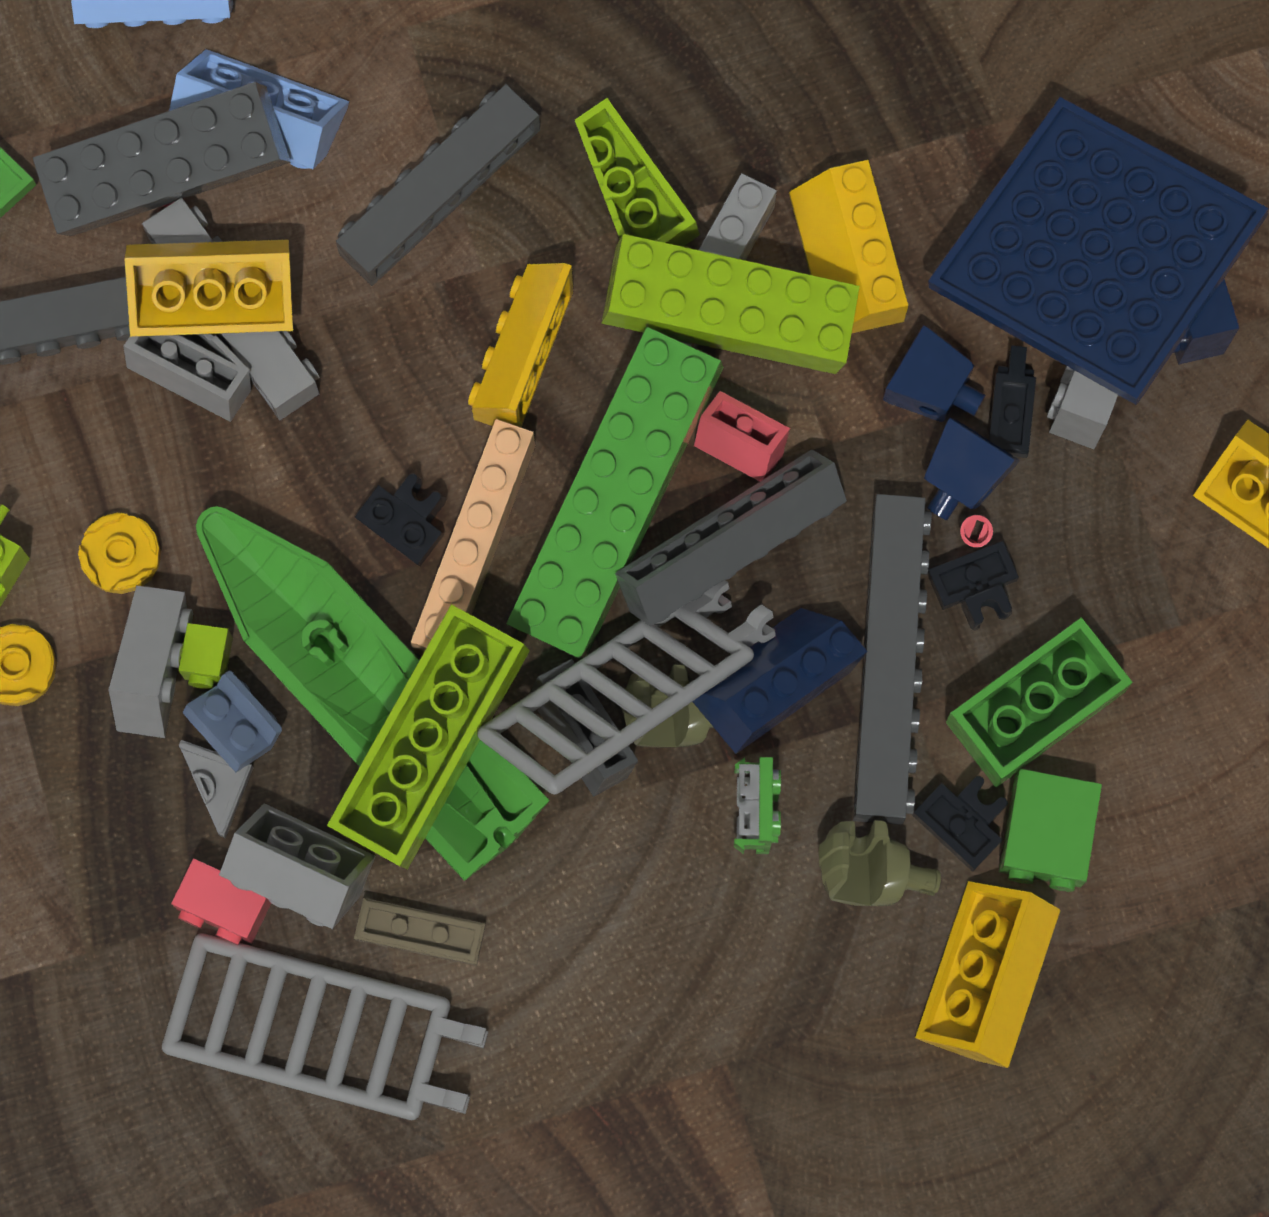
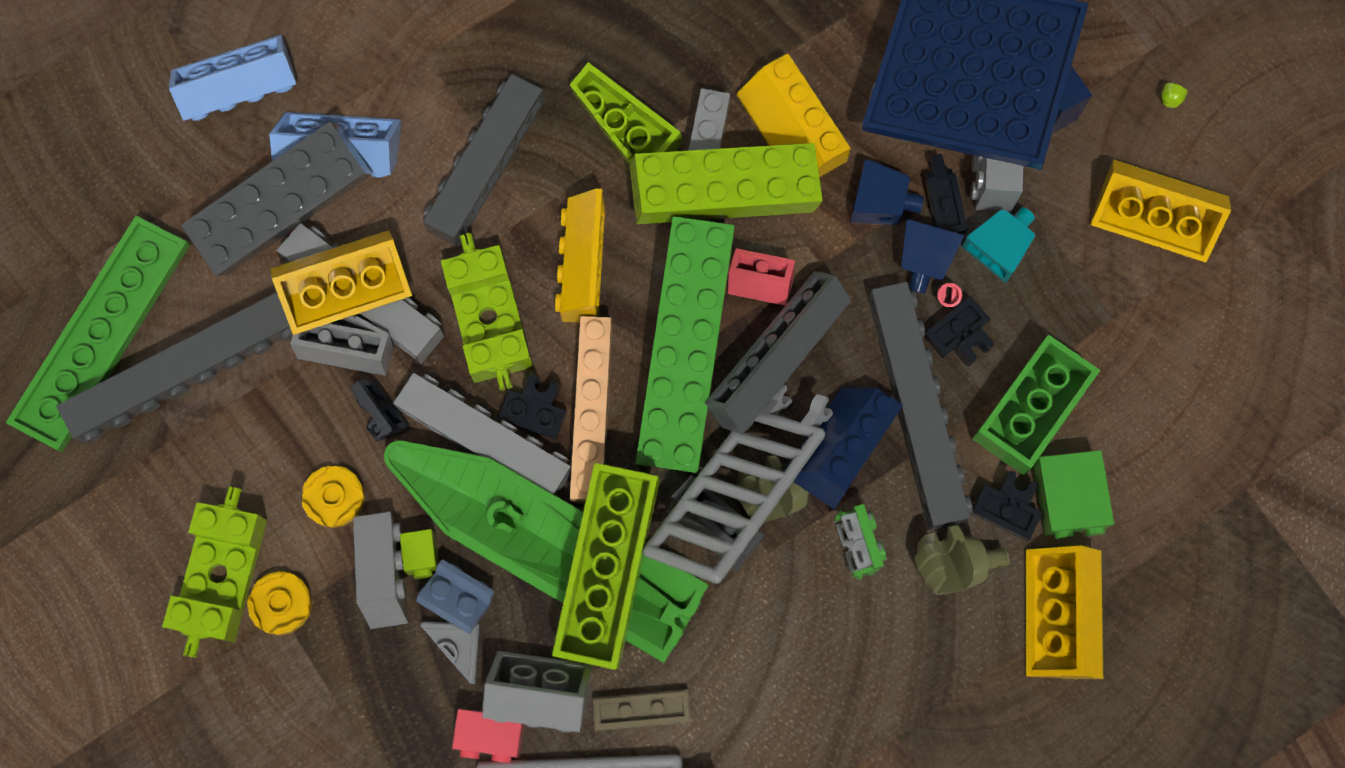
camera: 15 degrees left, 0 degrees up
(214, 472) = (385, 416): none -> black hinge
(325, 531) = (479, 434): none -> light grey brick
(380, 340) = (481, 284): none -> lime brick
(1067, 483) = (1001, 241): none -> teal torso

